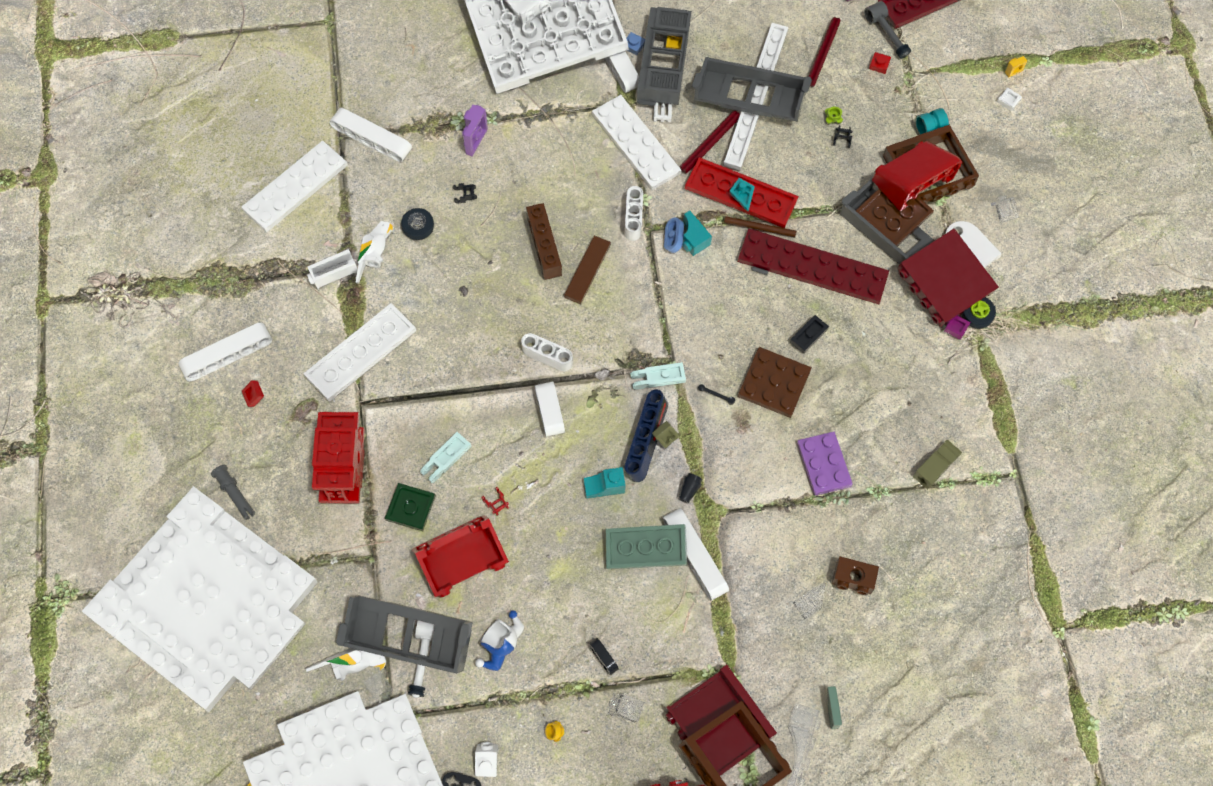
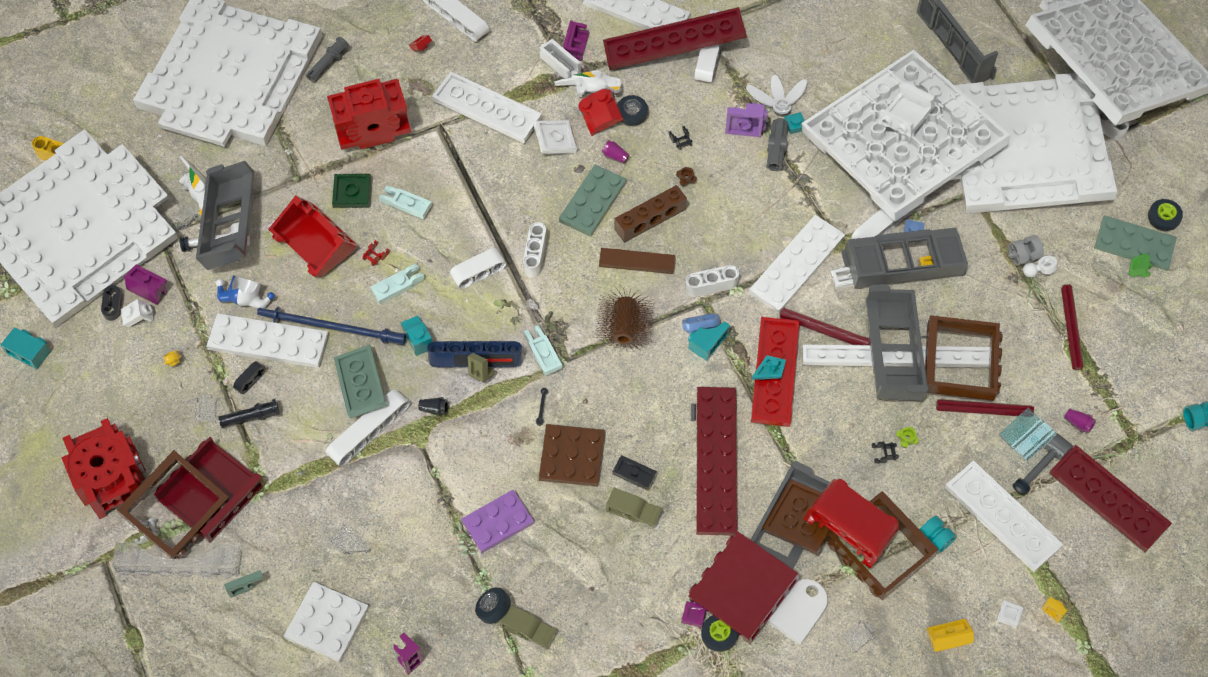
camera: 75 degrees right, 5 degrees down
(310, 249) = (576, 39): none -> magenta hinge
(354, 161) = (674, 38): none -> dark red plate
(410, 250) = (600, 110): none -> red slope
(422, 299) = (555, 137): none -> white tile
(455, 741) = (145, 284): none -> magenta hinge
(458, 100) = (778, 102): none -> white plant
(460, 252) = (615, 152): none -> magenta cone
(484, 95) = (794, 122): none -> teal plate
(506, 116) = (777, 144): none -> dark grey piece
(506, 288) = (592, 200): none -> sand green plate
(510, 196) = (686, 171): none -> reddish brown plate
(539, 491) = (396, 284): none -> light aqua hinge
(562, 631) = (267, 340): none -> white plate
(596, 513) = (384, 335): none -> dark blue bar
(645, 658) = (258, 411): none -> black pin
(660, 290) = (625, 320): none -> reddish brown piece
(759, 226) = (743, 399): reddish brown bar -> none
(784, 24) = (963, 326): none -> reddish brown window
(844, 345) = (632, 507): none -> olive piece
(860, 28) = (1027, 434): none -> clear light blue slope
(866, 572) = (386, 585): reddish brown brick -> none
(880, 63) = (997, 467): red plate -> none
(887, 641) = (326, 622): none -> white plate
(906, 490) = (492, 605): none -> black wheel
(925, 72) = (1003, 516): none -> white plate
(948, 567) = (410, 656): none -> magenta hinge
(1016, 145) = (950, 635): none -> yellow slope

